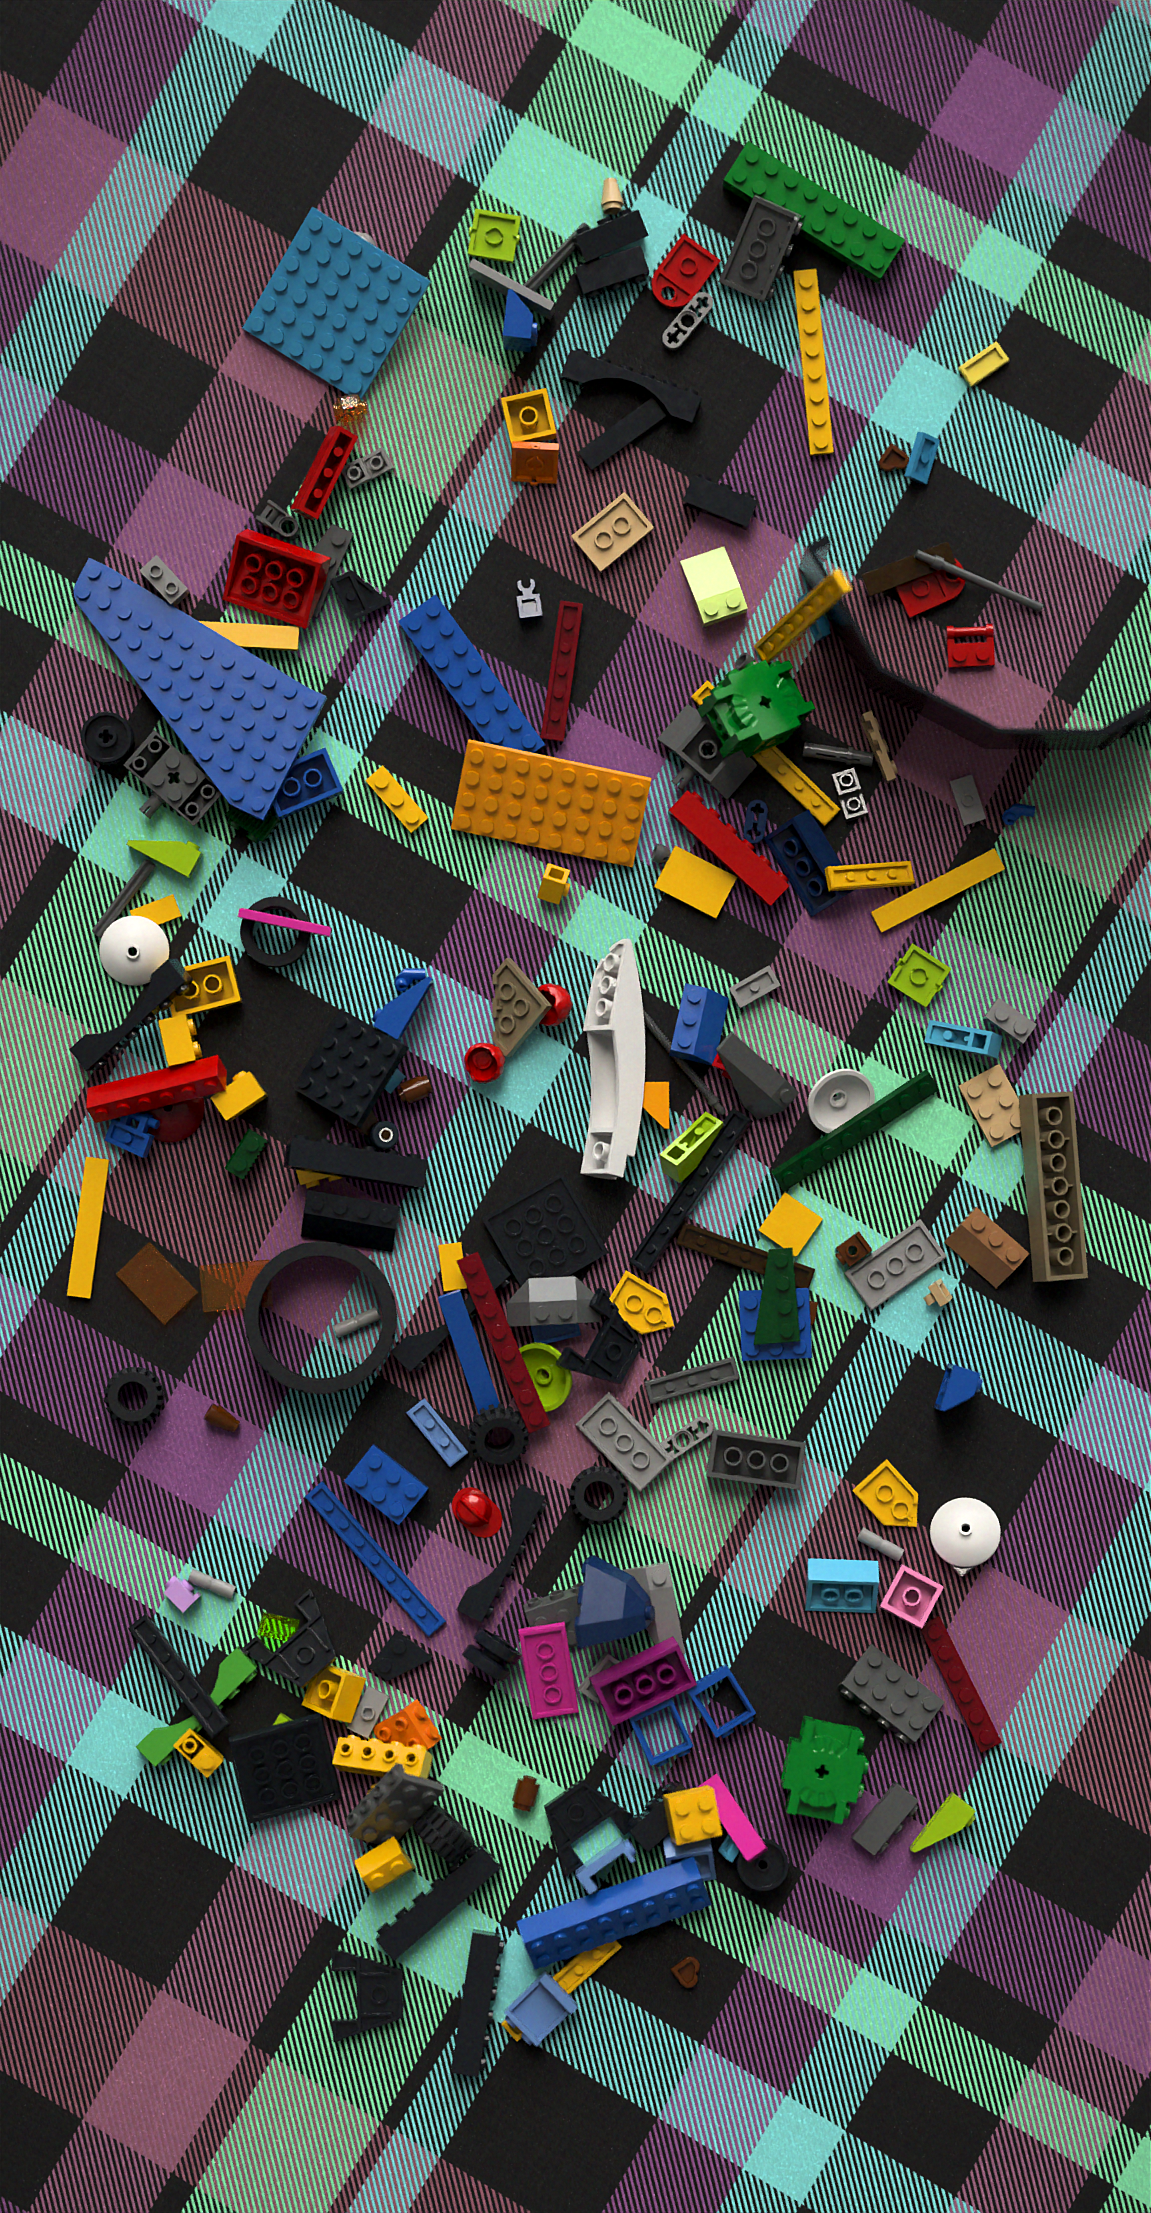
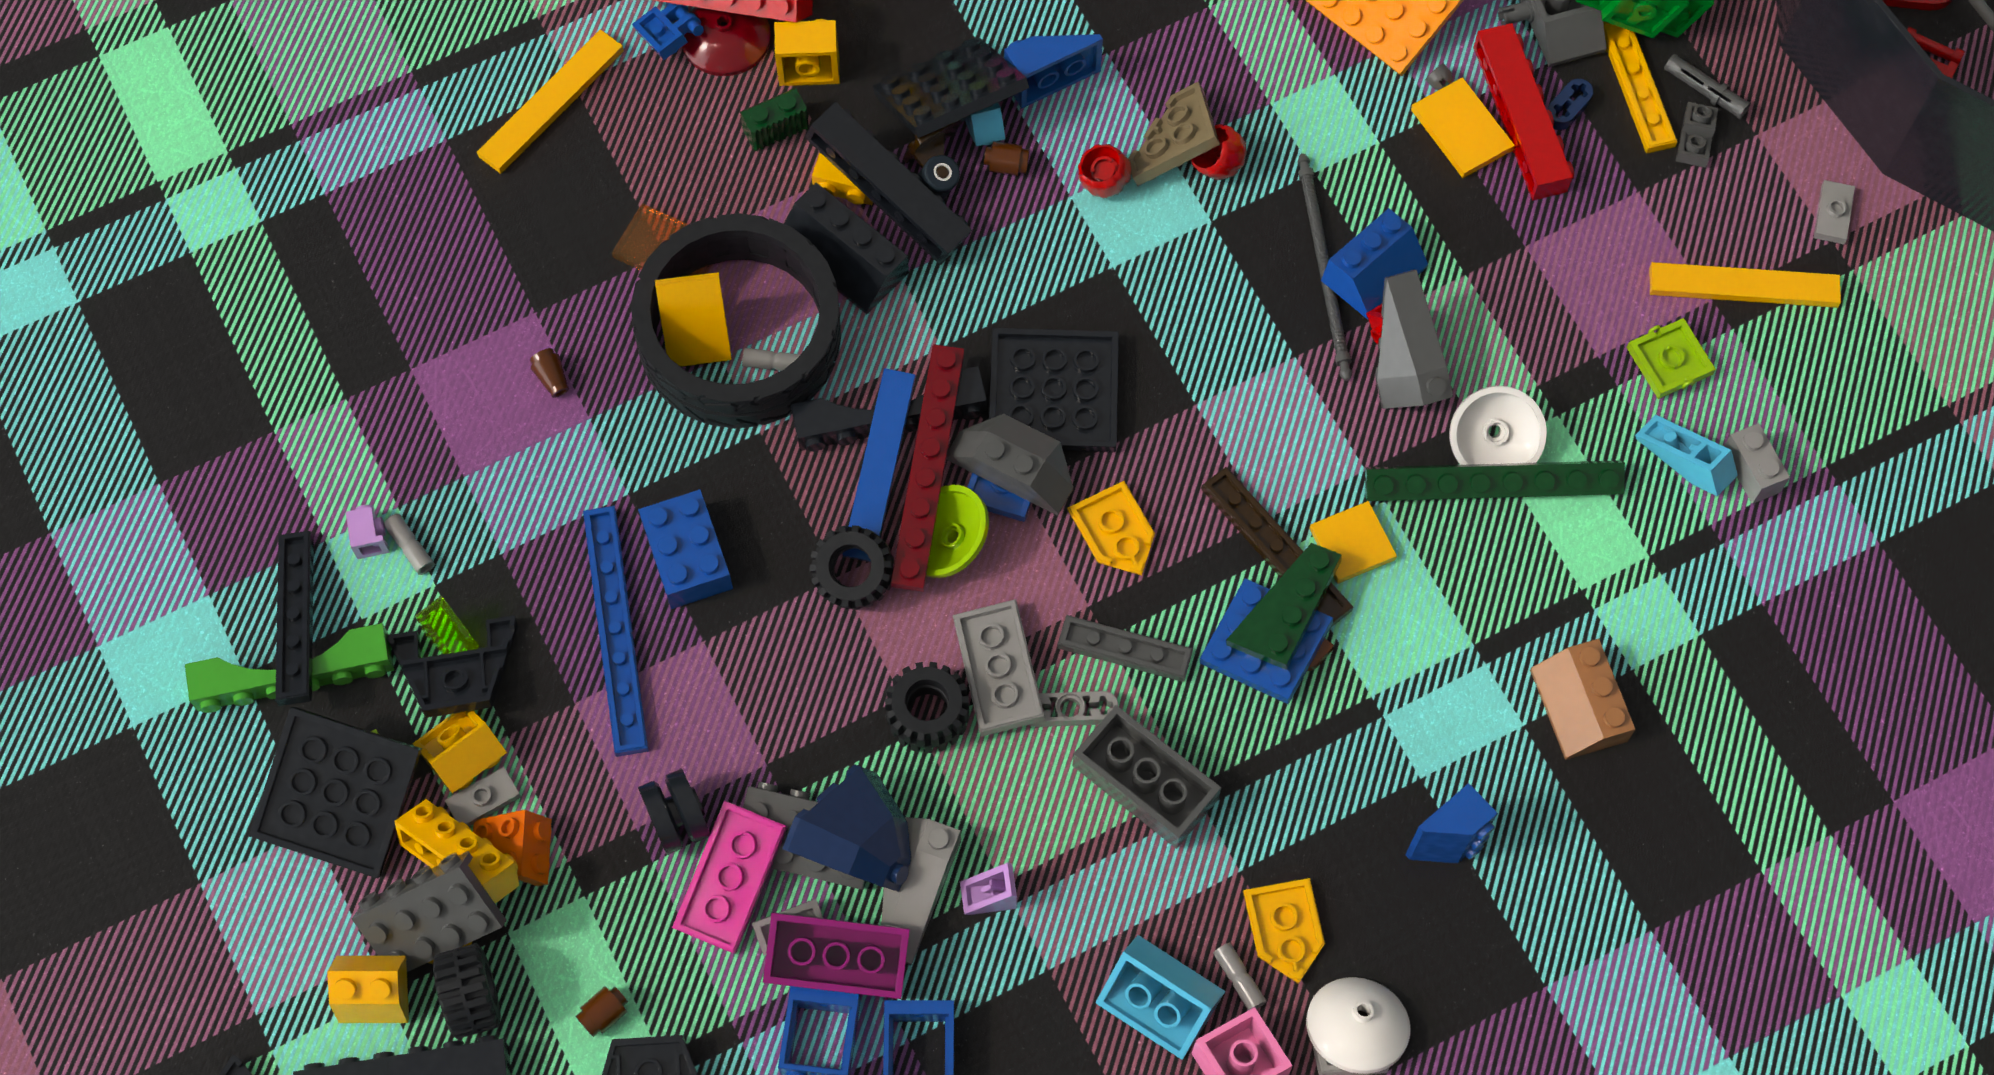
camera: 40 degrees right, 20 degrees down
(113, 1398) = (463, 269): black tyre -> none
(157, 1283) = (583, 197): clear orange tile -> none
(199, 1752) = (252, 717): yellow slope -> none
(294, 1335) = (693, 319): none -> yellow tile
(398, 1657) = (563, 756): black wing -> none
(437, 1432) = (784, 532): medium blue tile -> none
(451, 1274) = (920, 359): yellow tile -> none
(477, 1512) = (770, 649): red piece -> none
(479, 1596) = (707, 741): black arch -> none
(552, 888) = (1299, 38): yellow brick -> none
(612, 1348) = (1050, 550): black wing -> none
(616, 1063) = (1256, 251): white slope -> none
(657, 1102) = (1275, 318): light orange slope -> none
(689, 1148) = (1282, 388): lime slope -> none
(690, 1193) = (1255, 438): black tile -> none
(704, 1584) = (989, 891): none -> lavender slope
(754, 987) = (1466, 265): light grey plate -> none
(803, 856) = (1609, 174): dark blue slope -> none
(855, 1240) = (1407, 619): reddish brown brick -> none
(869, 876) = (1674, 216): yellow tile -> none
(878, 746) = (1760, 95): tan wing -> none
(895, 1264) = (1455, 660): light grey tile -> none
(938, 1293) = (1489, 720): tan tile -> none
(993, 1104) = (1683, 550): tan plate -> none
(1017, 810) = (1886, 253): blue arm -> none
(1053, 1186) = (1708, 672): dark tan brick -> none

